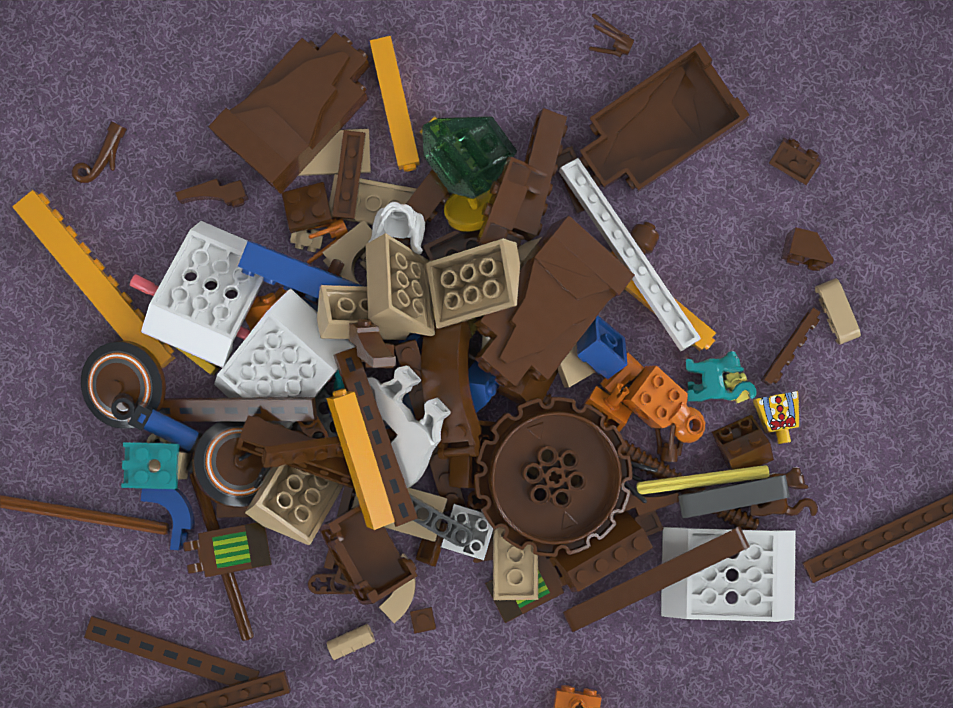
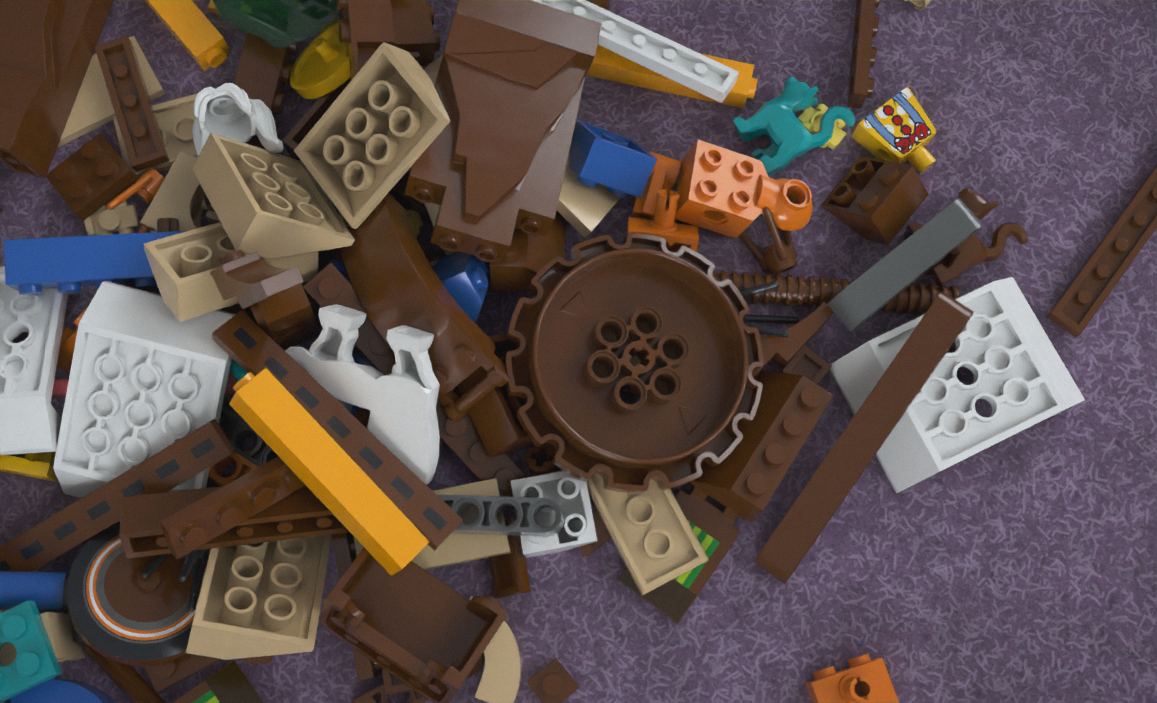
camera: 30 degrees left, 10 degrees down
(703, 479) = (848, 266): light yellow axle -> none

